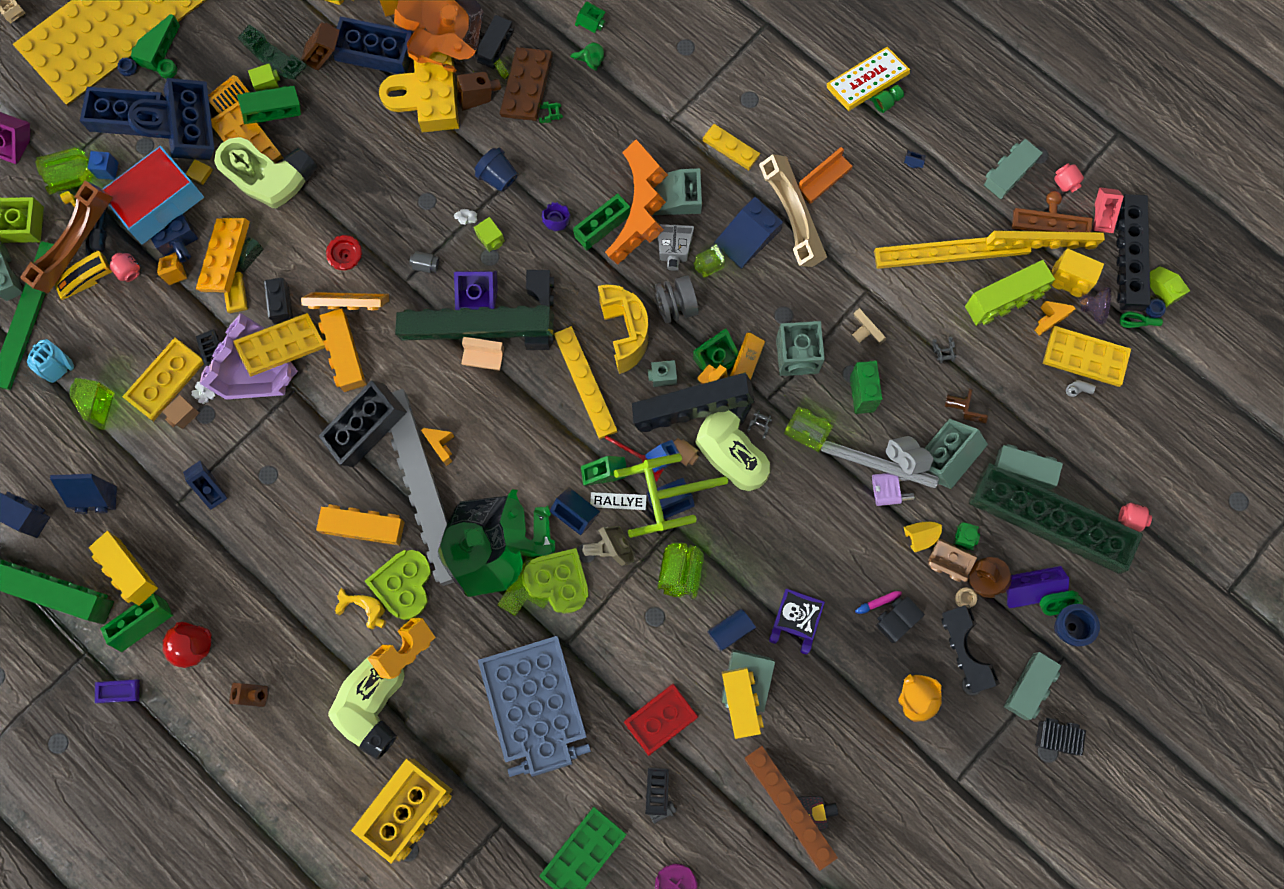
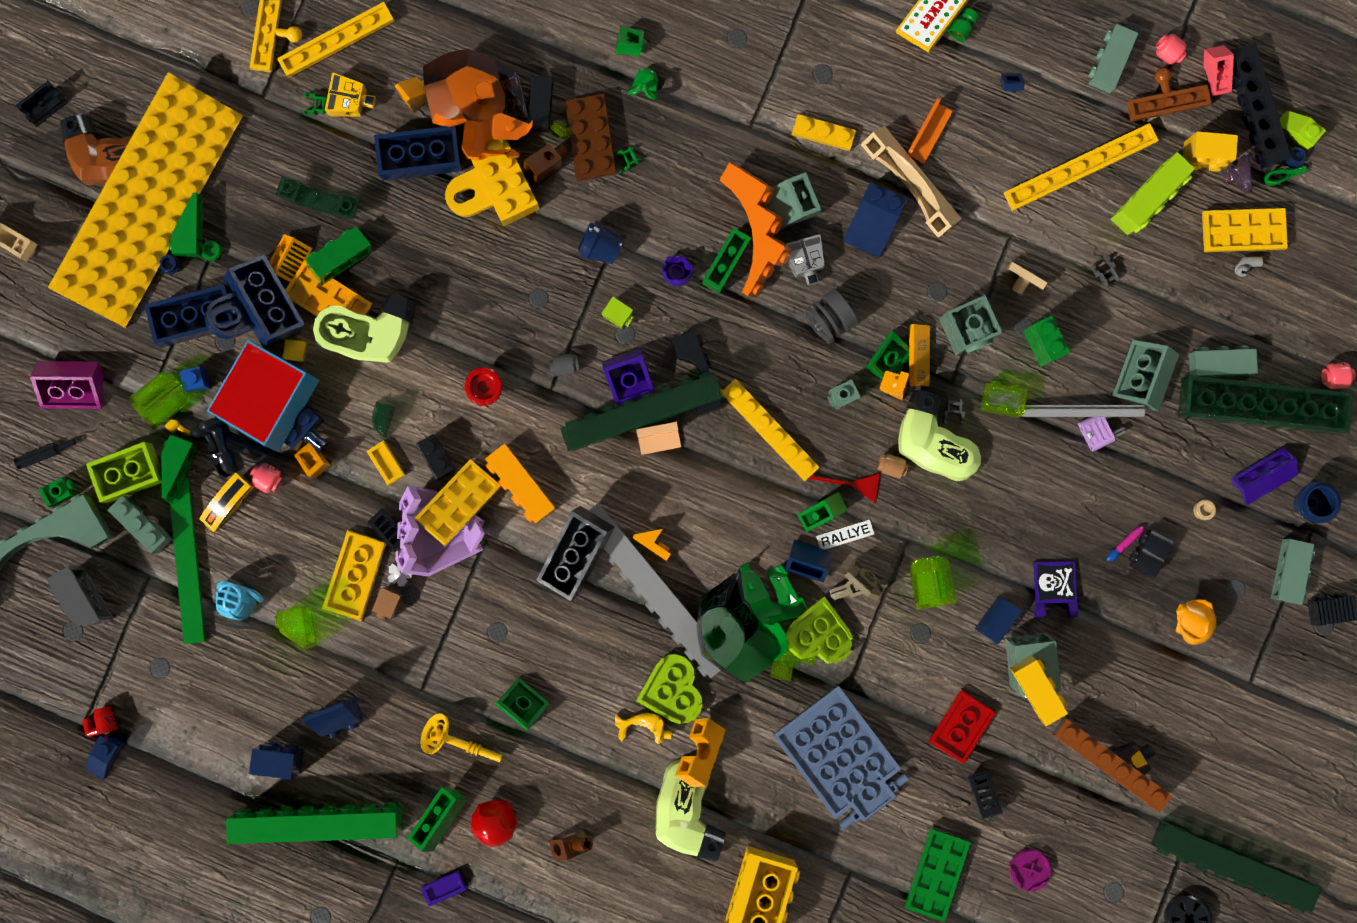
camera: 25 degrees left, 10 degrees up
(48, 230) = (175, 463): none -> green slope
(89, 207) = (210, 435): dark orange arch -> none
(122, 568) = (402, 775): yellow brick -> none
(171, 544) = (442, 736): none -> yellow dish
(204, 485) = (442, 665): dark blue slope -> none
(222, 255) = (359, 430): light orange plate -> none
(260, 546) = (522, 703): none -> green slope
(264, 78) = (320, 227): lime brick -> none
(320, 45) = (368, 175): reddish brown brick -> none
(351, 300) = (504, 433): light orange plate -> none
(359, 525) = (609, 650): light orange brick -> none
(465, 216) = (586, 302): white plant -> none
(618, 302) = (801, 355): yellow cylinder -> none
(656, 495) = (875, 500): lime piece -> none
(663, 449) = (875, 478): blue brick -> none
(676, 504) = (896, 516): dark blue brick -> none
(693, 402) = (887, 417): black brick -> none
(709, 261) = (846, 263): clear neon green window -> none
(909, 455) = (1109, 393): light grey brick -> none
(923, 534) = (1145, 463): yellow brick -> none
(951, 560) = (1181, 480): medium nougat bracket -> none
(963, 404) = (1143, 321): reddish brown bracket -> none
(966, 536) = (1187, 451): green brick -> none
(978, 674) = (1241, 579): black arch -> none
(990, 577) = (1222, 483): reddish brown tile -> none
(1045, 239) = (1162, 129): yellow plate -> none
(1054, 314) = (1202, 198): light orange slope -> none
(1054, 603) = (1294, 483): green plate -> none

